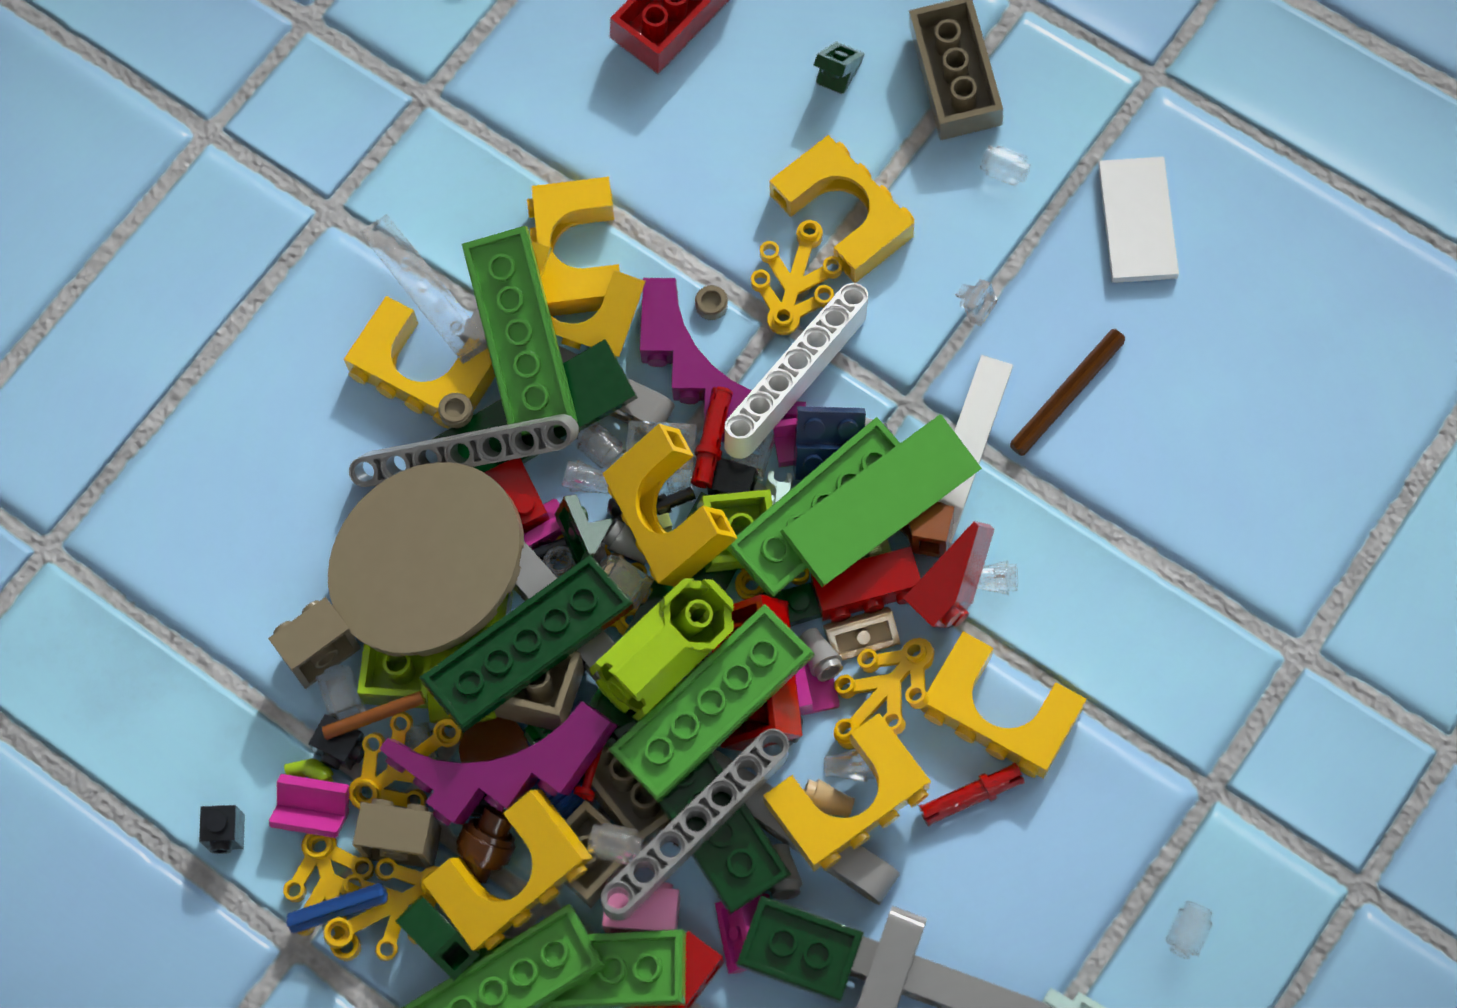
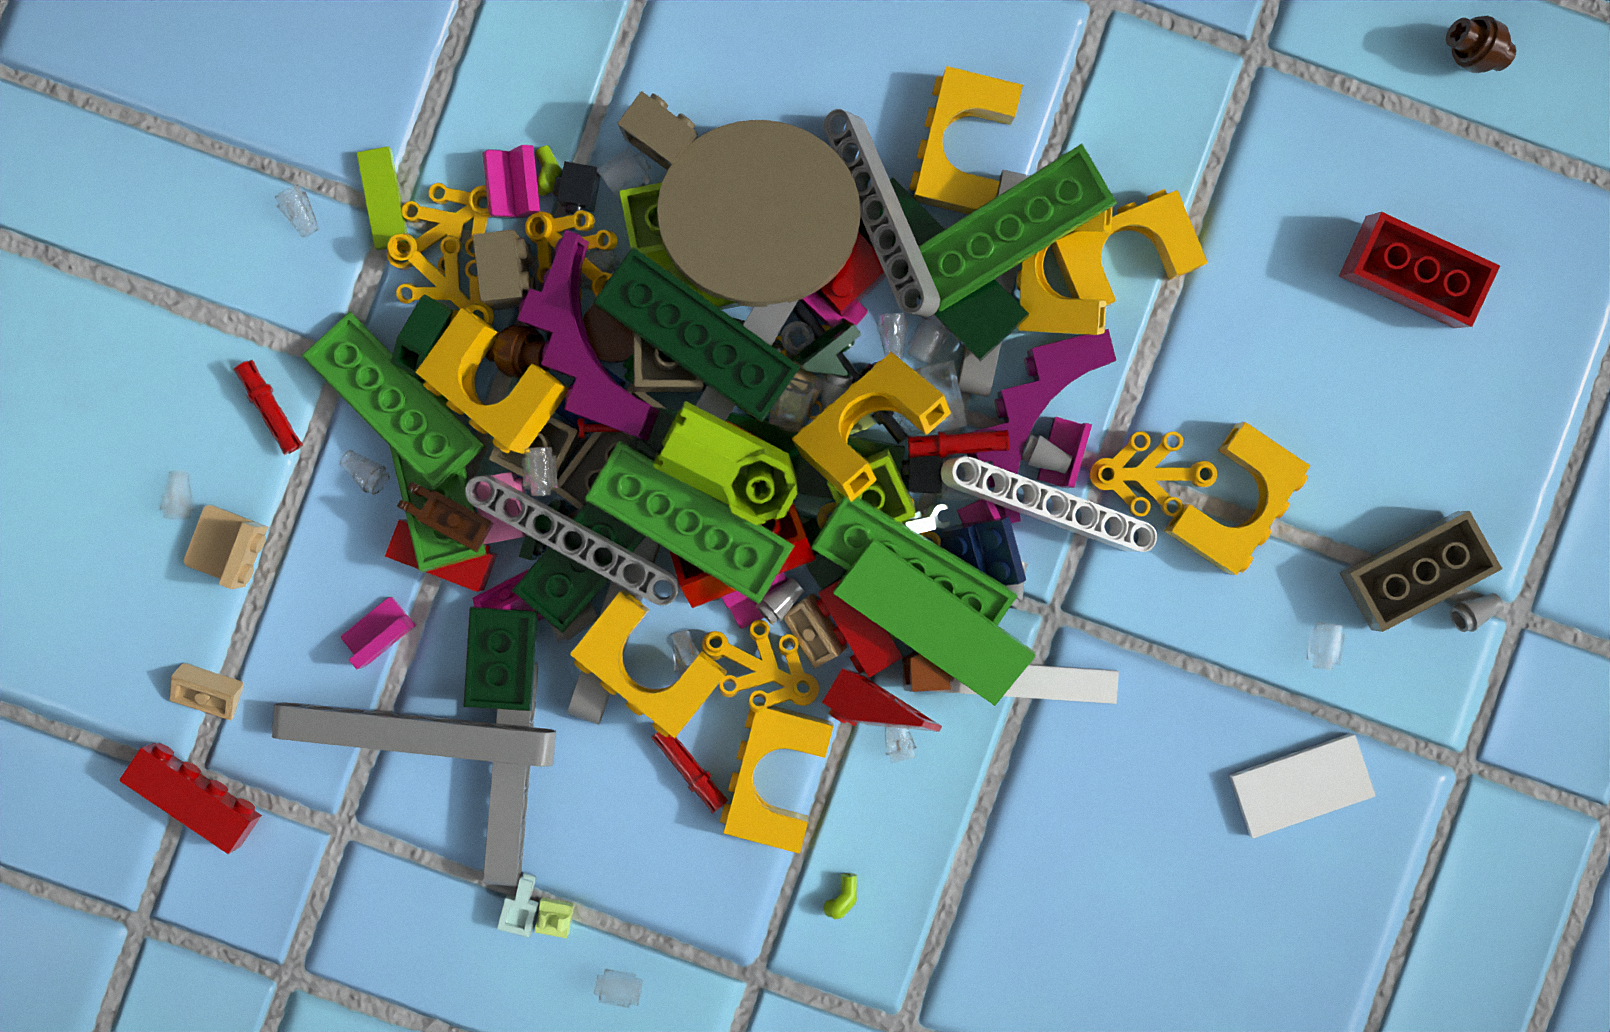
camera: 65 degrees right, 20 degrees up
(221, 828) = (470, 109): black brick -> none
(277, 950) = (382, 195): none -> lime tile
(337, 907) = (425, 238): blue axle -> none
(373, 715) = (601, 211): dark orange bar -> none
(425, 288) = (1043, 119): clear tile -> none
(455, 410) = (921, 191): dark tan tile -> none
(633, 955) = (448, 518): none -> reddish brown hinge
(689, 886) = (532, 547): none -> dark green slope
(711, 302) = (1106, 400): dark tan tile -> none
(748, 364) = (1045, 455): none -> light grey cone
(749, 347) = (1071, 439): none -> dark pink panel
(829, 799) = (648, 641): tan cone -> none
(837, 66) = (1393, 452): dark green slope -> none
(977, 300) = (1172, 653): clear tile -> none
(1009, 34) = (1473, 613): none -> light grey cone
(1067, 392) = (1103, 761): reddish brown axle -> none
(1098, 981) = (554, 917): none -> yellowish green tile
(1150, 673) = (846, 900): none -> lime arm

